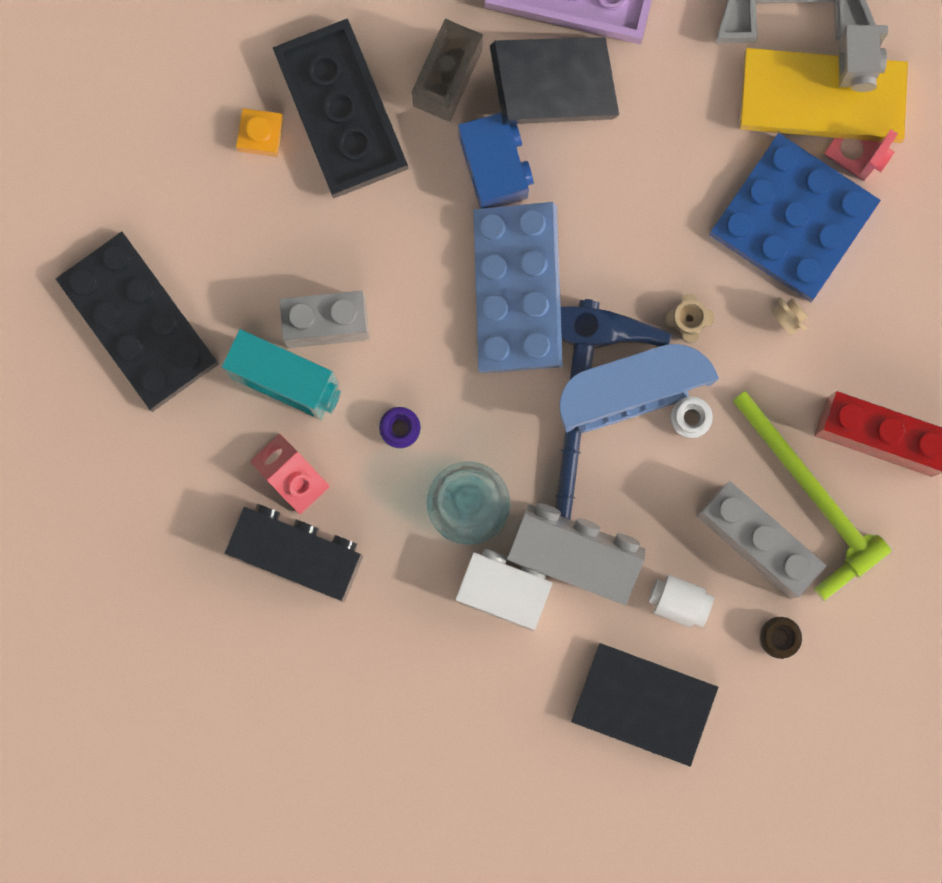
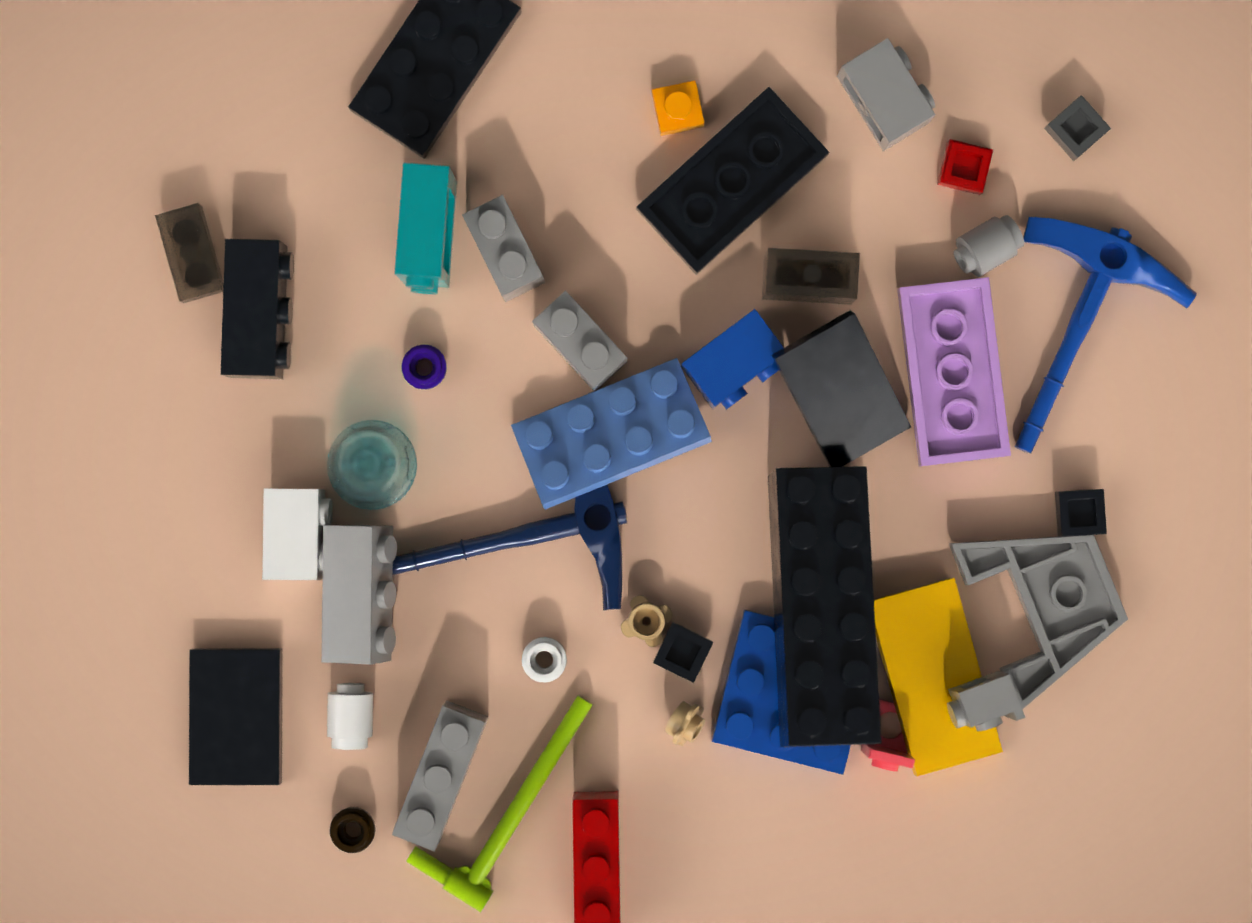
camera: 65 degrees right, 5 degrees up
(223, 593) = (190, 253): none -> clear smoke plate
(290, 474) = (334, 274): coral bracket -> none
(429, 283) = (580, 341): none -> light grey brick
(633, 386) = (549, 588): medium blue brick -> none
(727, 295) = (683, 652): none -> black plate
(733, 159) = (823, 607): none -> black brick

